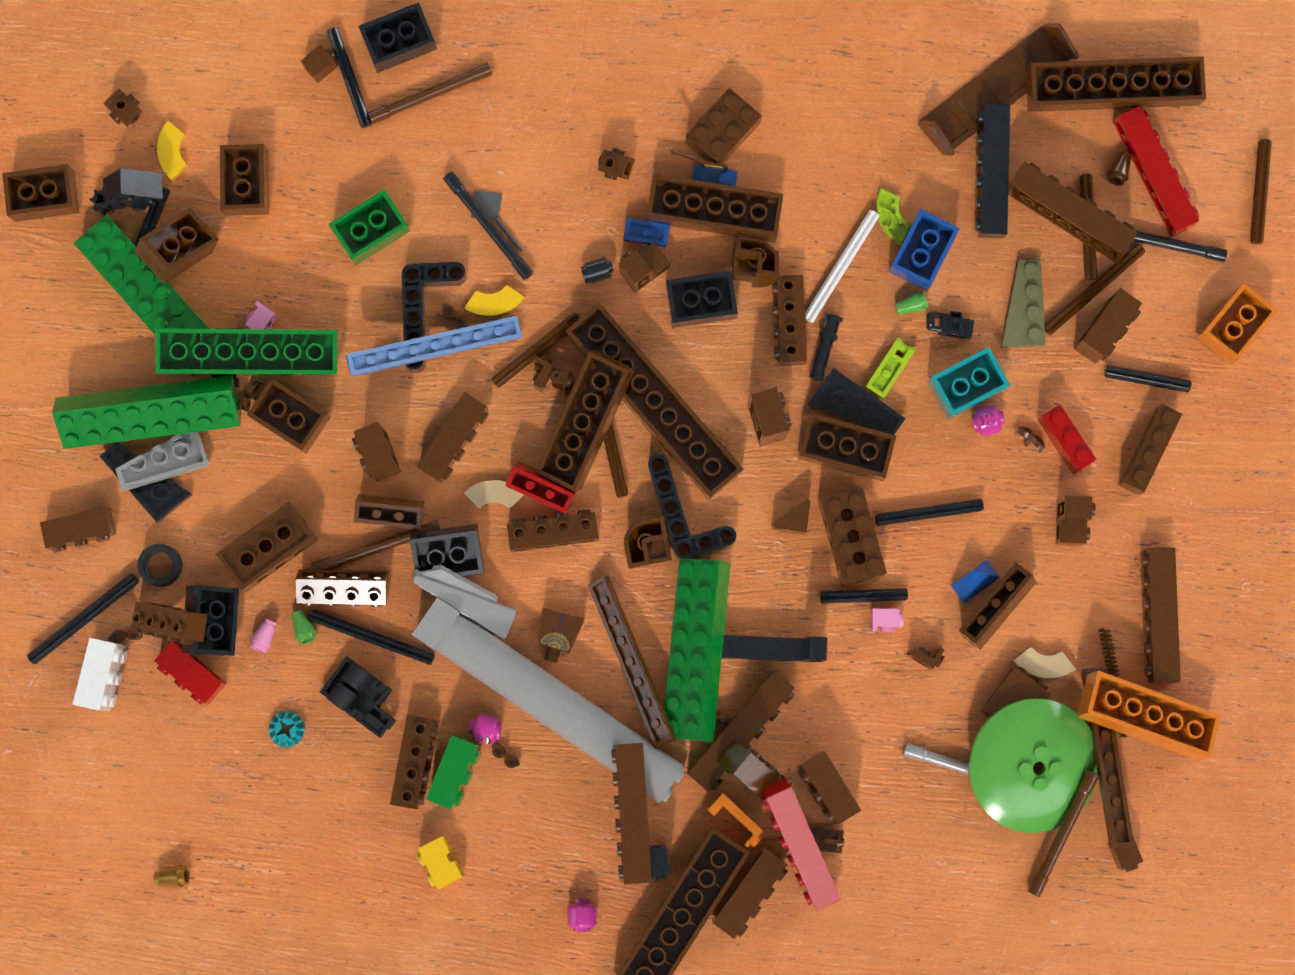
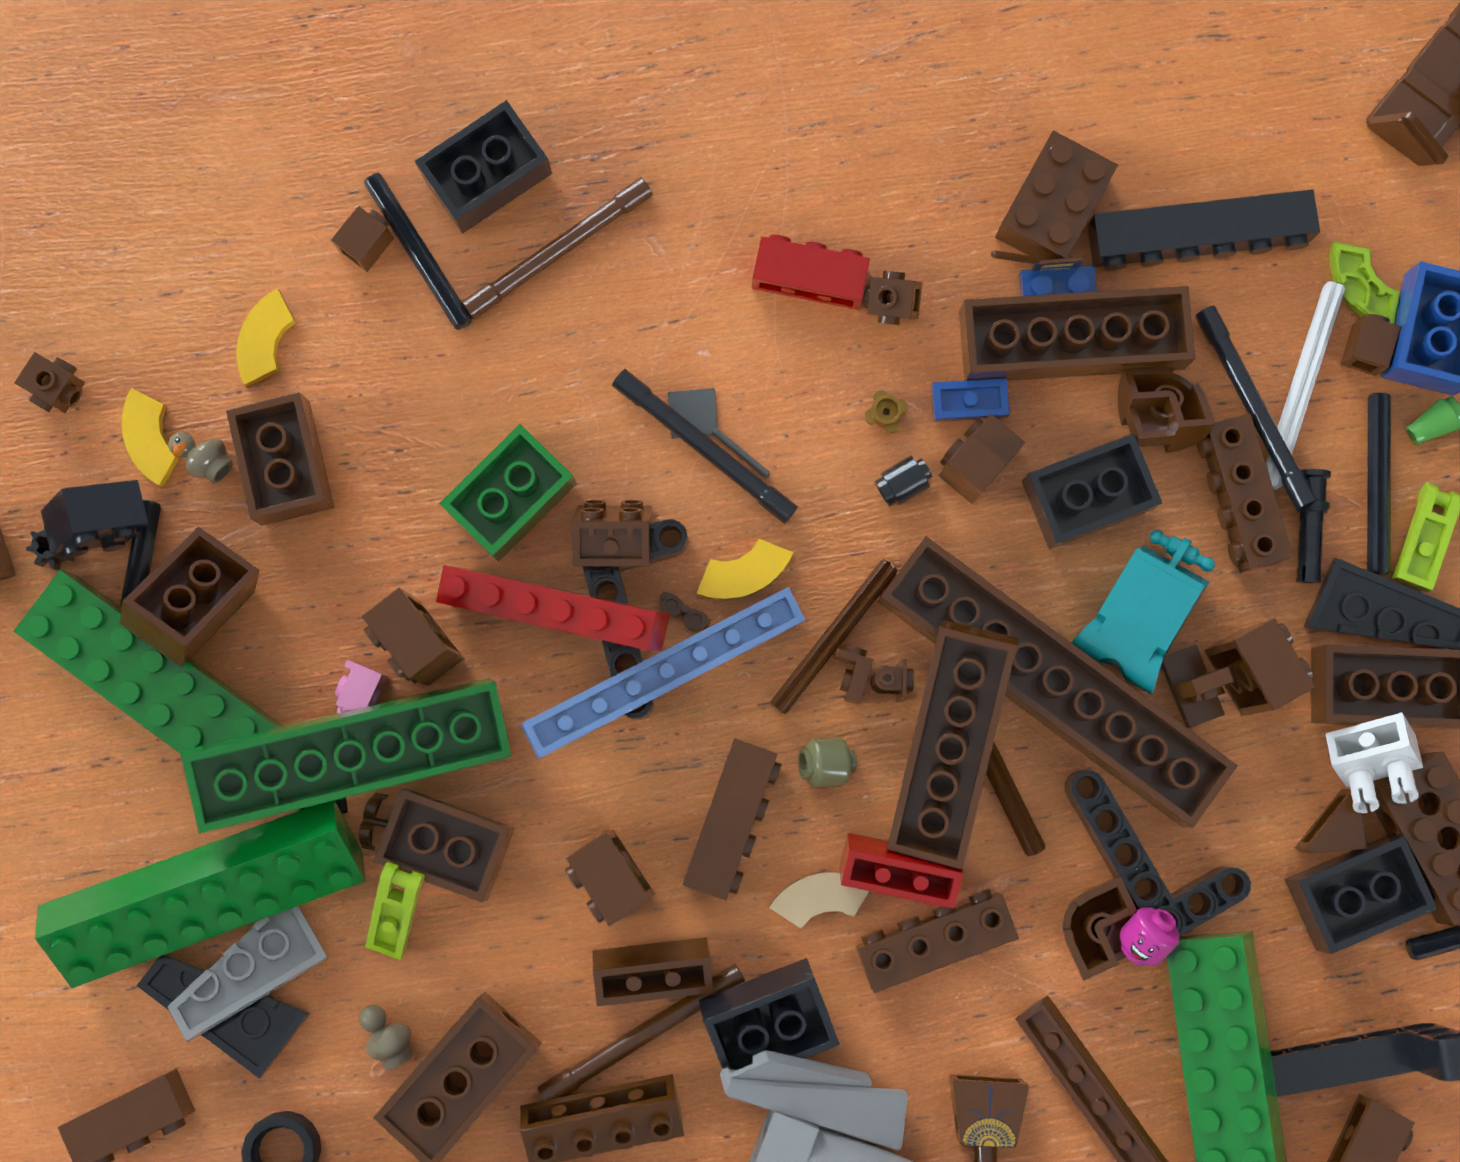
camera: 10 degrees left, 0 degrees up
(200, 171) = (205, 460): none -> dark tan animal
(232, 518) = (386, 1042): none -> dark tan animal
(247, 108) = (260, 338): none -> yellow tile
(252, 446) = (393, 911): none -> lime plate
(296, 296) = (411, 637): none -> reddish brown brick
(379, 296) = (553, 608): none -> red brick
(421, 263) = (611, 534): none -> reddish brown bracket
(515, 419) = (826, 762): none -> olive head
(572, 138) = (810, 272): none -> red brick
(603, 228) = (885, 401): none -> pearl gold plate
(669, 551) = (1149, 936): none -> dark pink head
(716, 373) = (1146, 610): none -> teal piece
(734, 423) = (1194, 687): none -> reddish brown bracket
(797, 557) = (1360, 894): none -> black brick
(805, 163) = (1203, 229): none -> black brick
(818, 316) = (1291, 476): none -> black piece
(822, 479) = (1374, 752): none -> white brick
(870, 332) = (1379, 484): none -> black axle
(885, 251) = (1370, 344): none -> reddish brown brick

